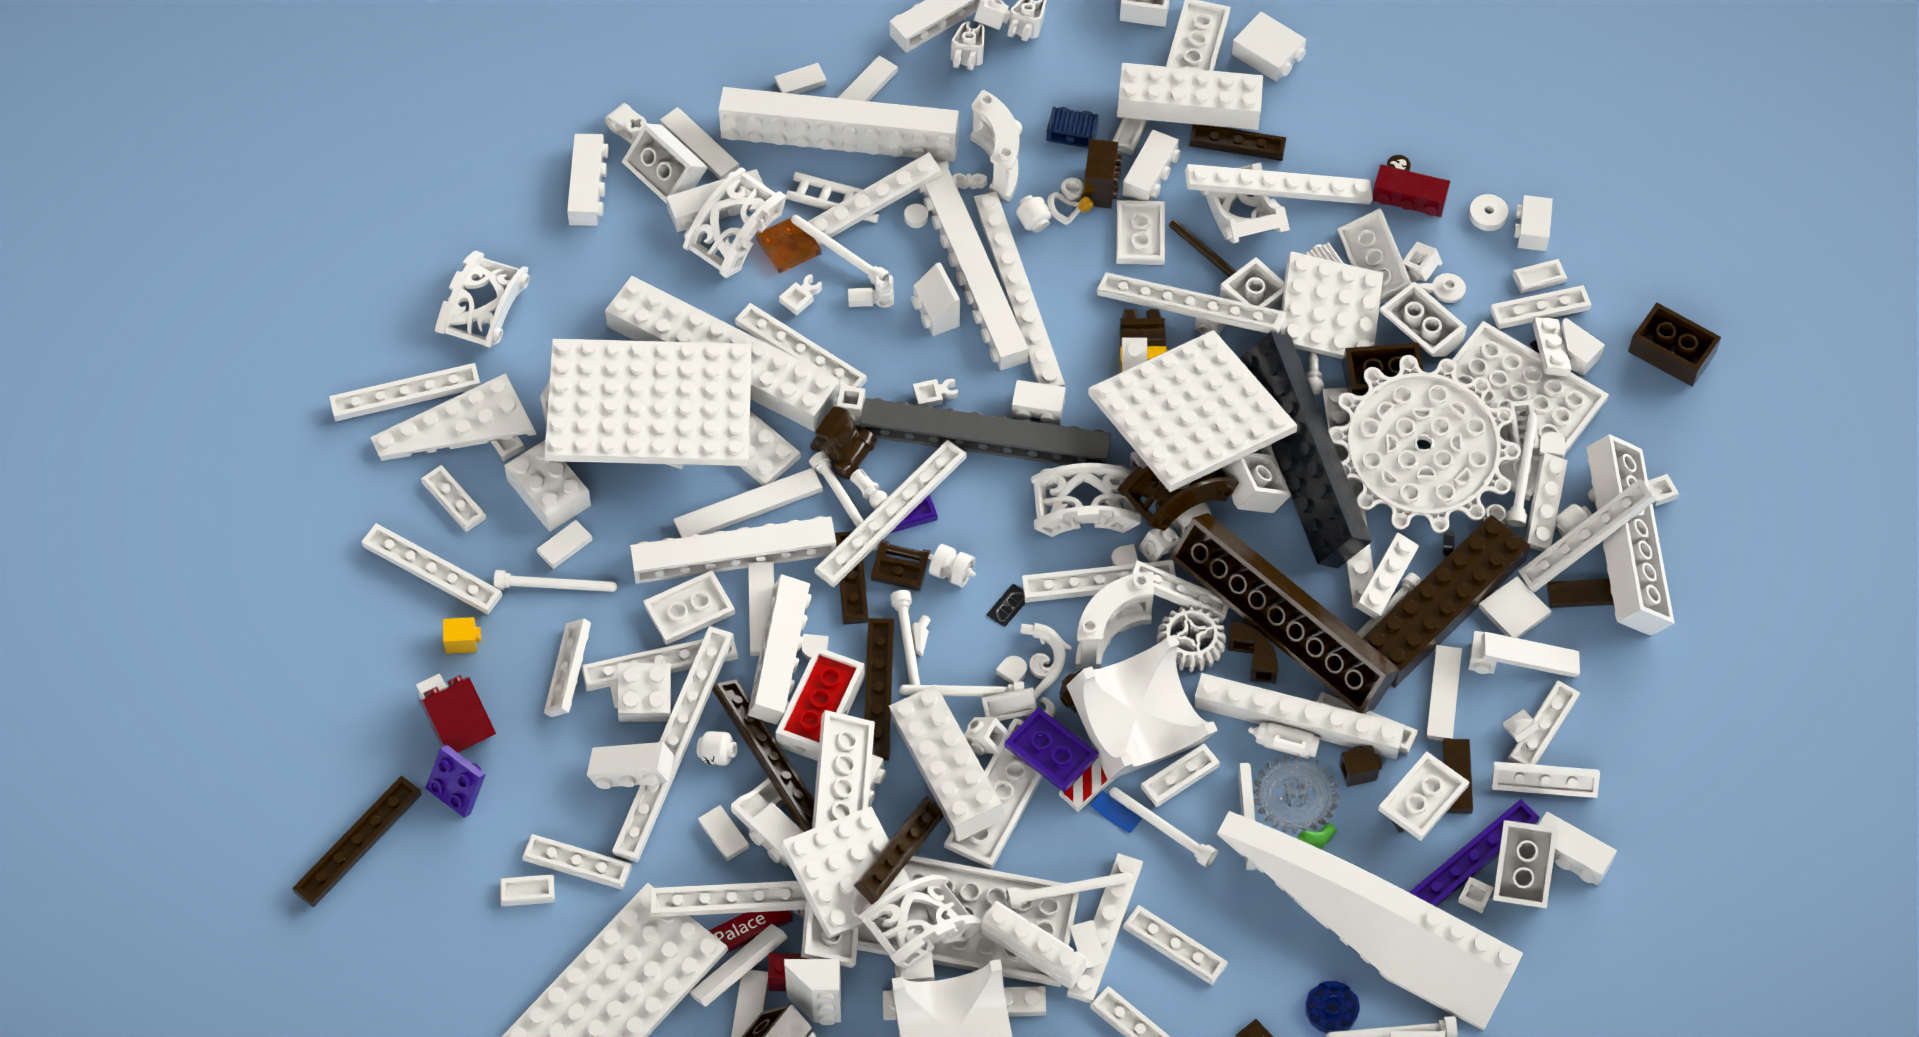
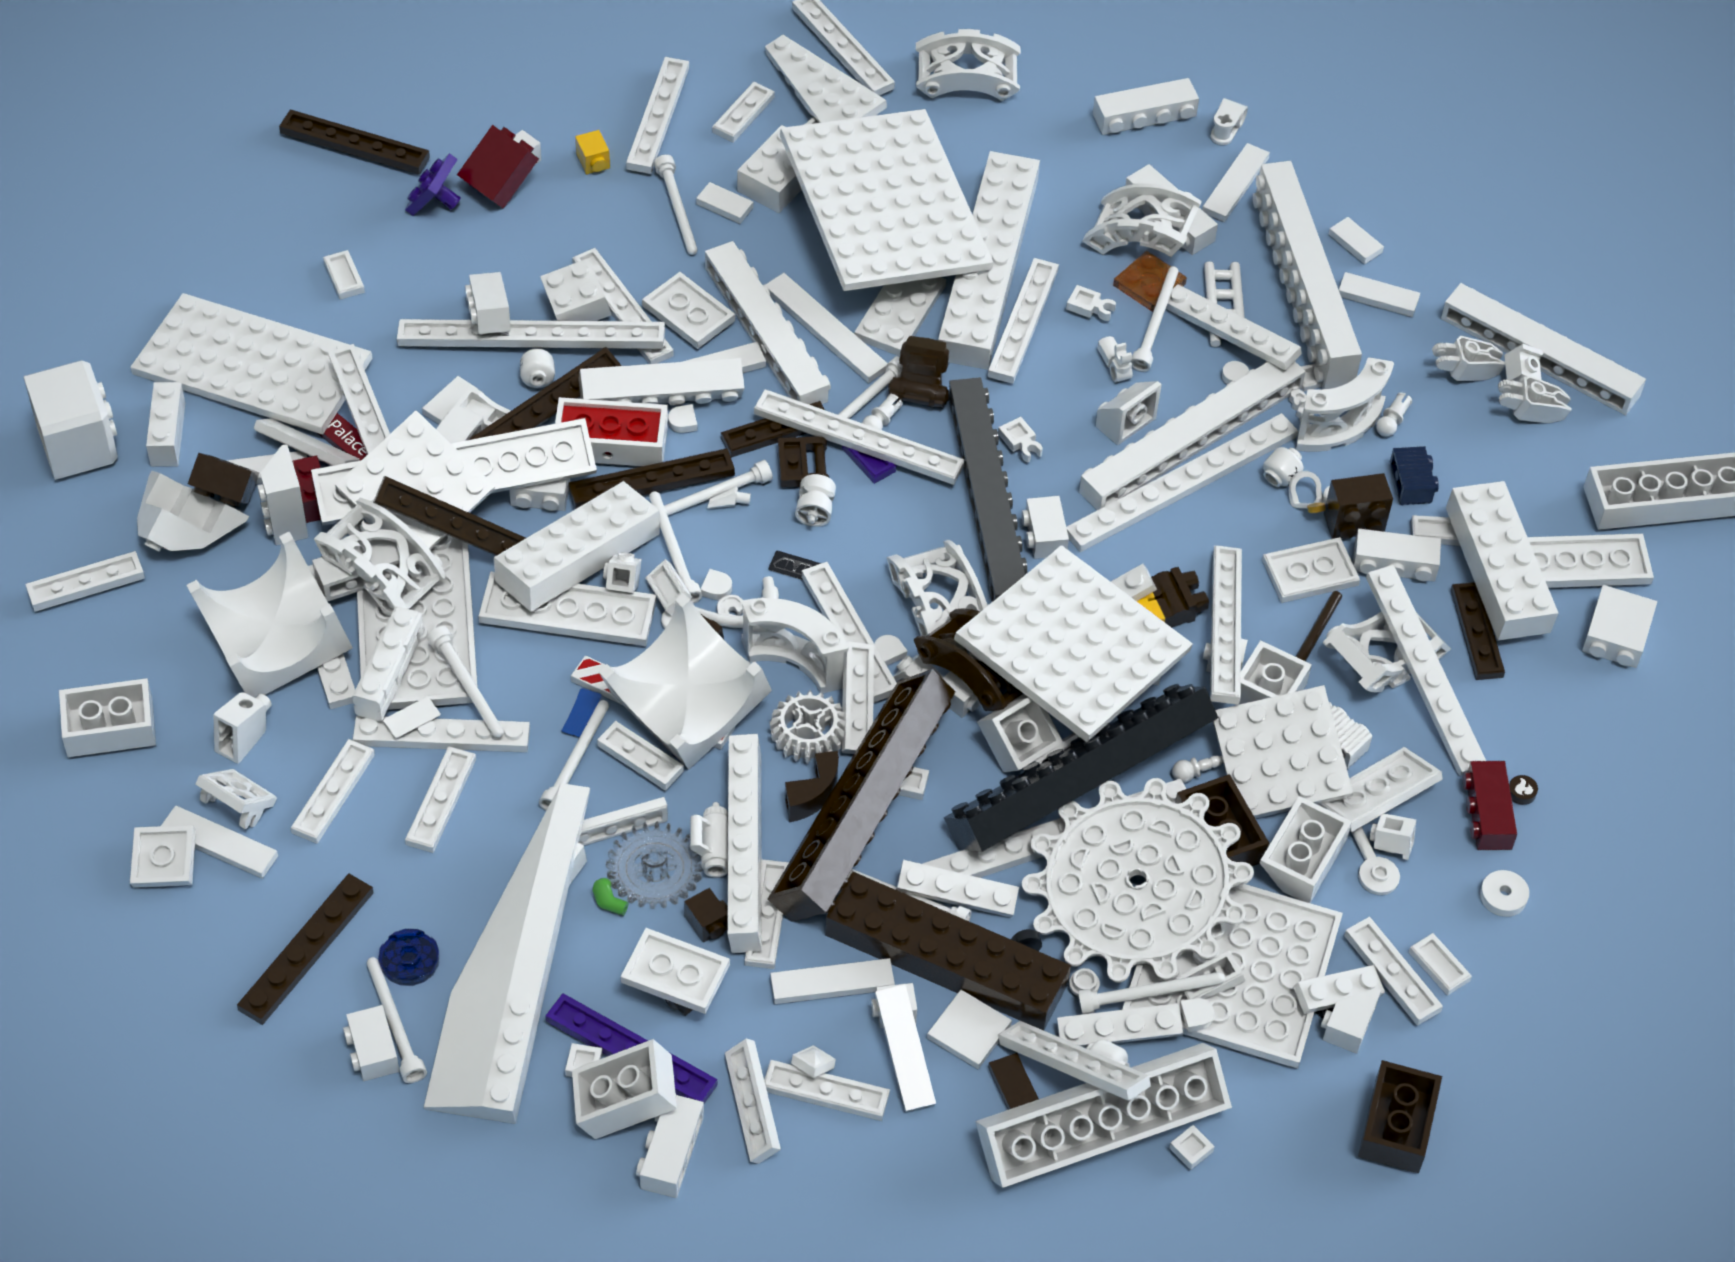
camera: 70 degrees right, 5 degrees down
(567, 668) = (575, 239): white plate -> none
(577, 861) = (385, 302): white tile -> none
(663, 162) = (1198, 157): white slope -> none
(851, 400) = (968, 365): white brick -> none
(1051, 749) = (622, 627): dark purple plate -> none
(1457, 757) = (732, 1016): dark brown tile -> none
(1534, 224) = (1508, 939): white brick -> none

